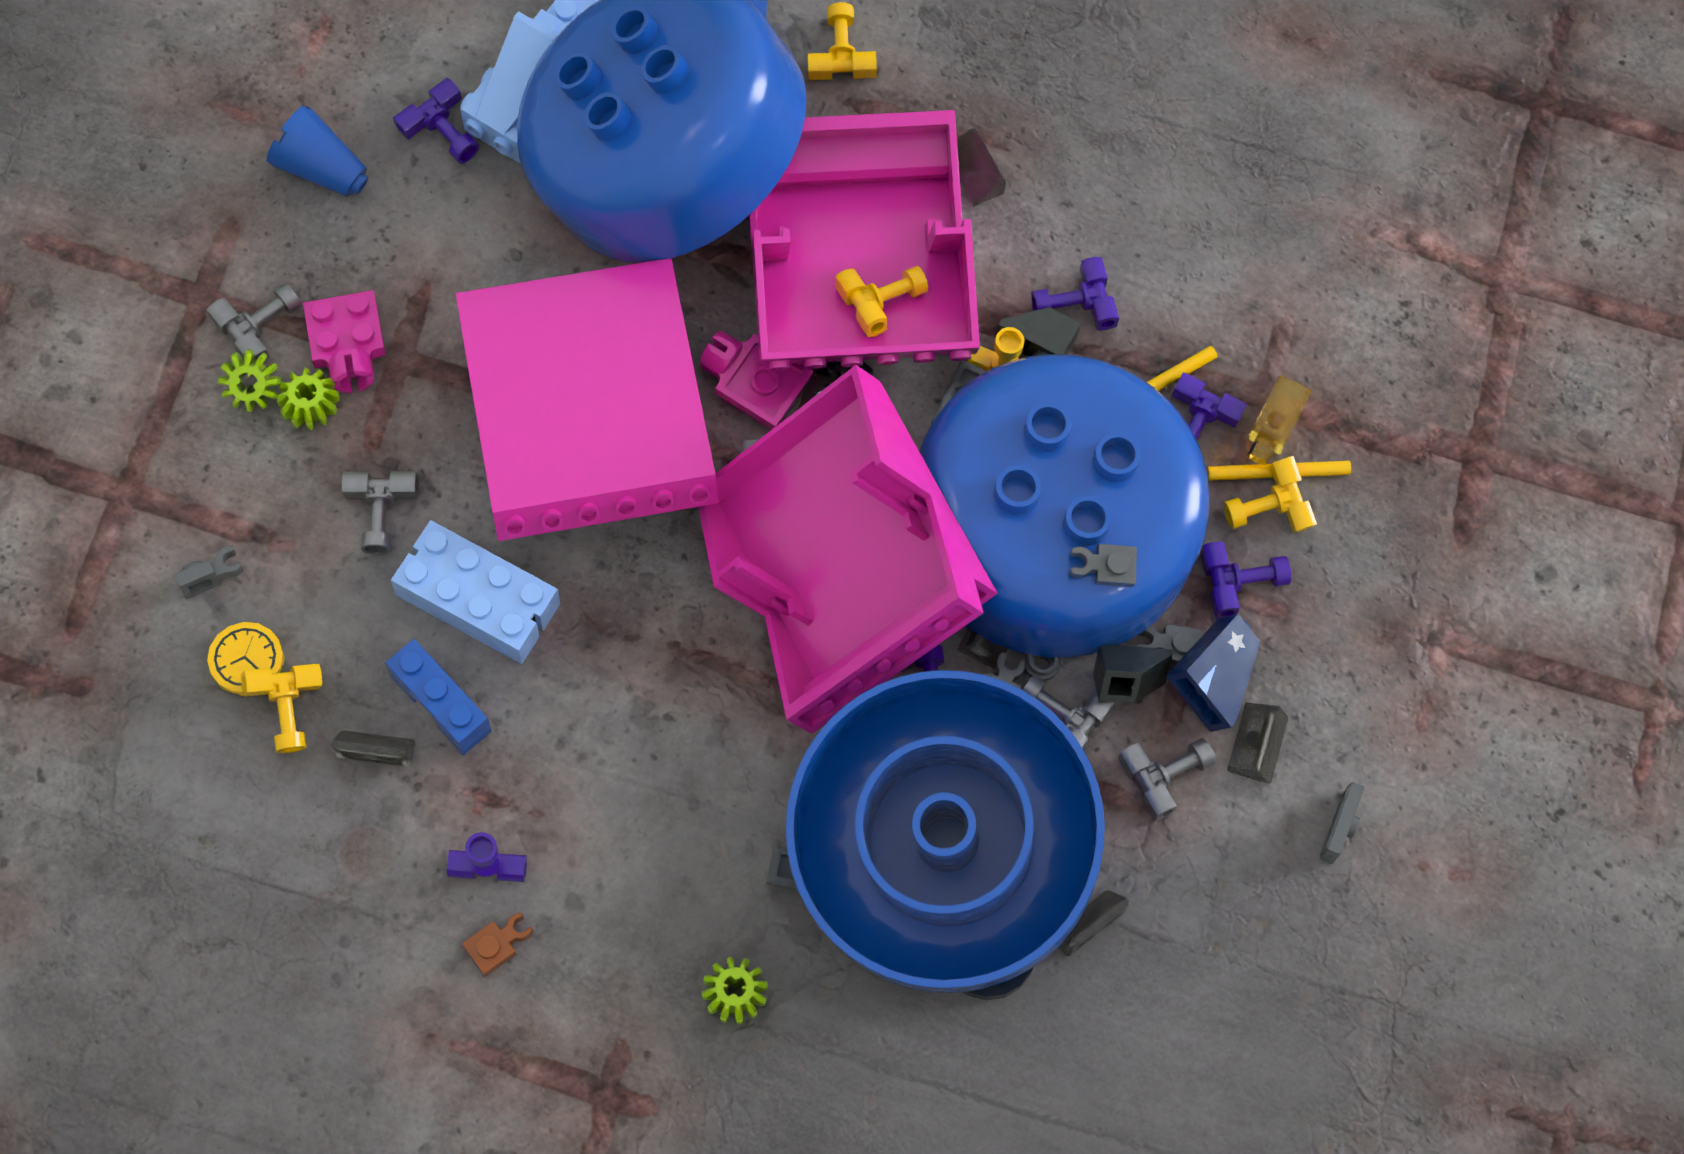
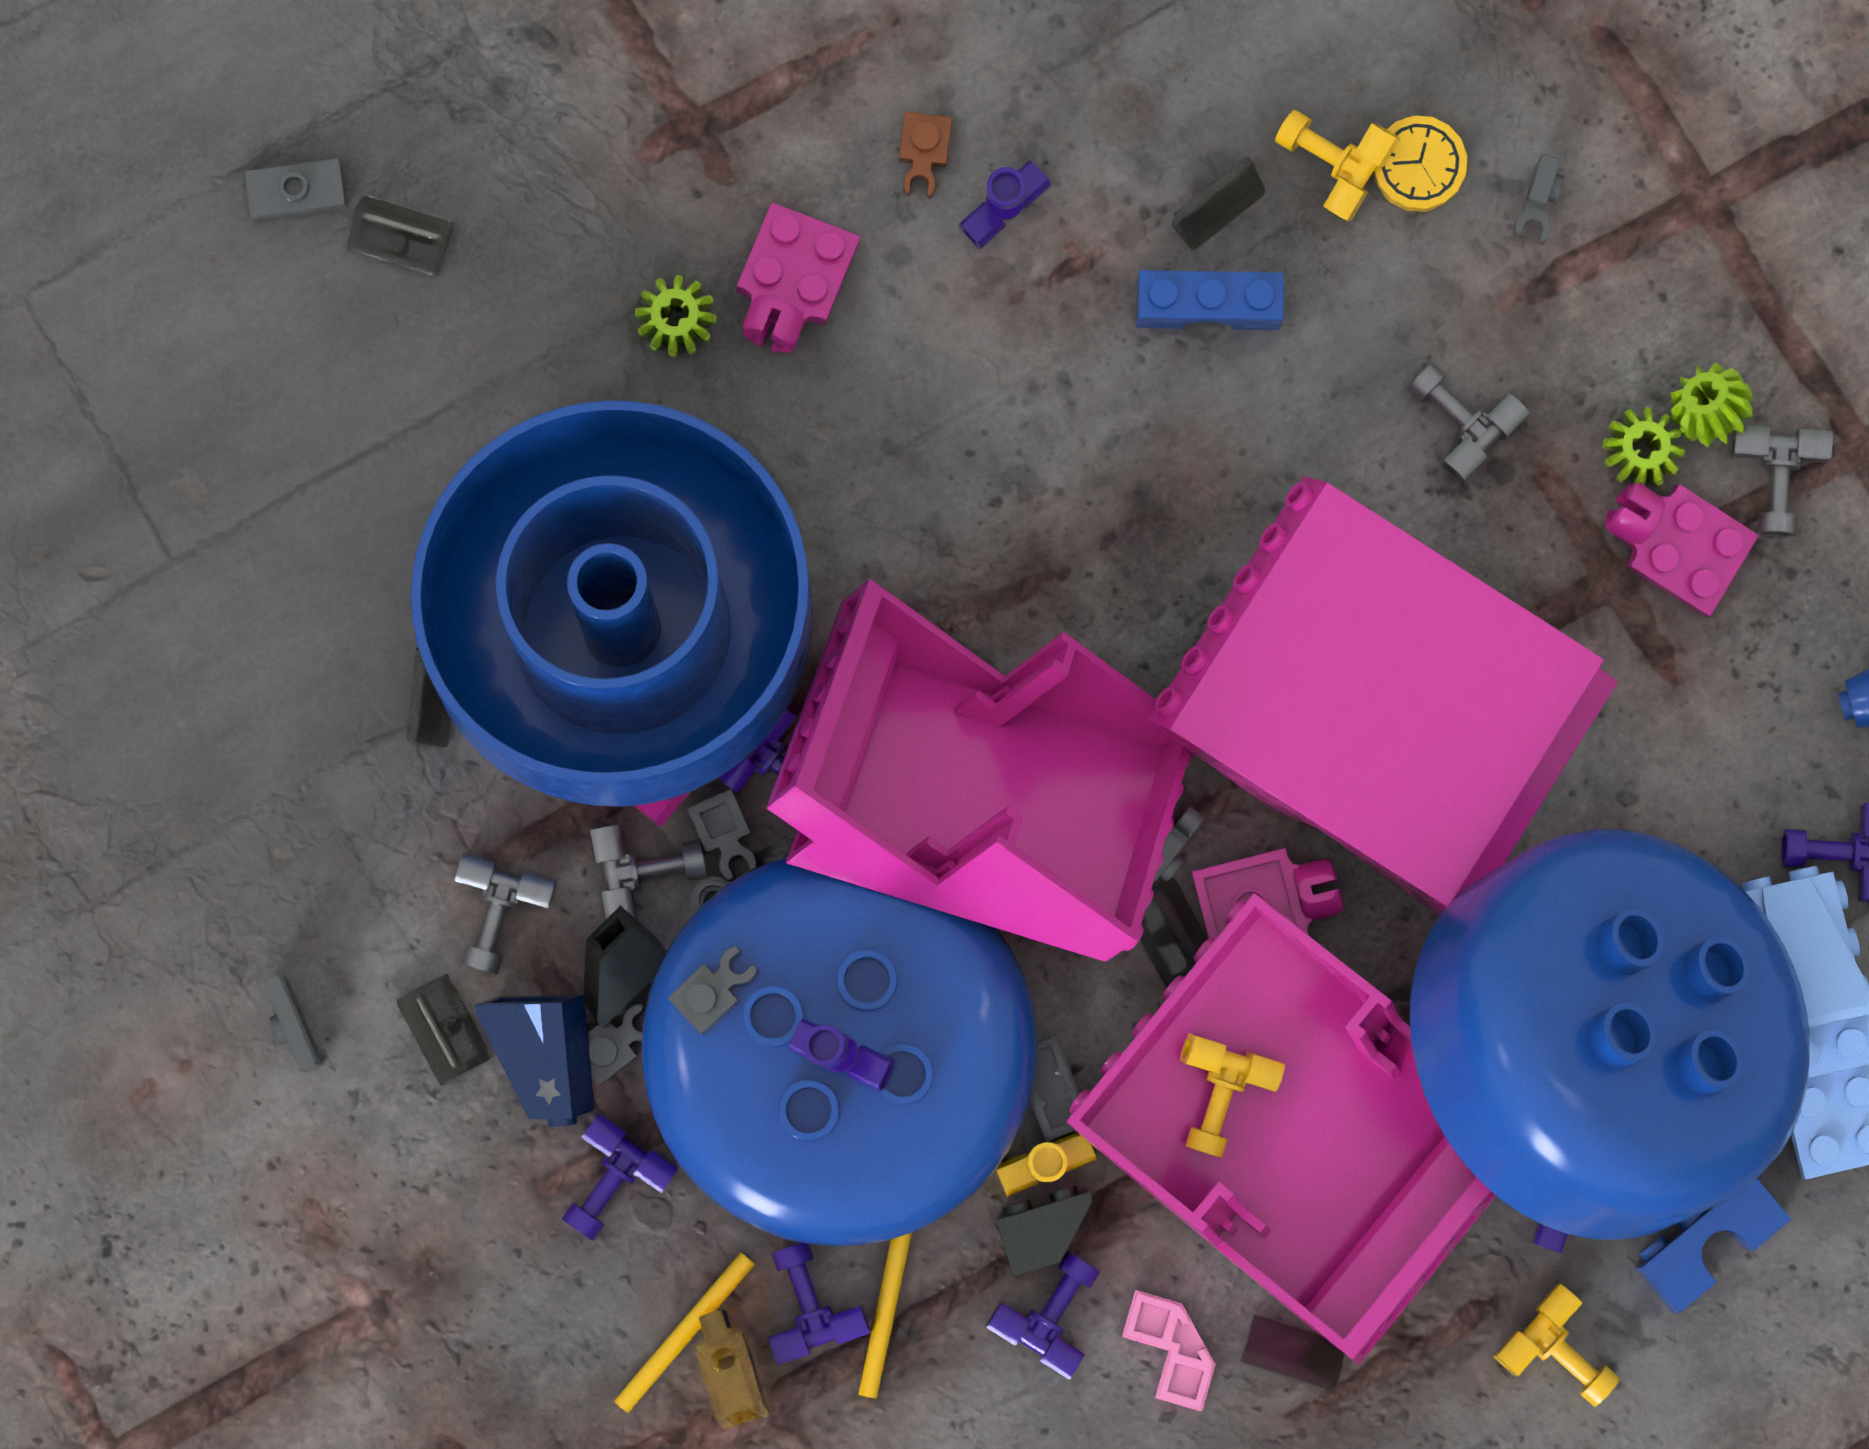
camera: 140 degrees right, 15 degrees up
(476, 592) = (1285, 427): light blue piece -> none
(645, 946) = (793, 275): none -> dark pink plate
(1023, 238) = (1187, 1362): none -> bright pink tile
(1076, 451) = (840, 1053): none -> dark purple bar
(1284, 497) = (648, 1302): yellow bar -> none

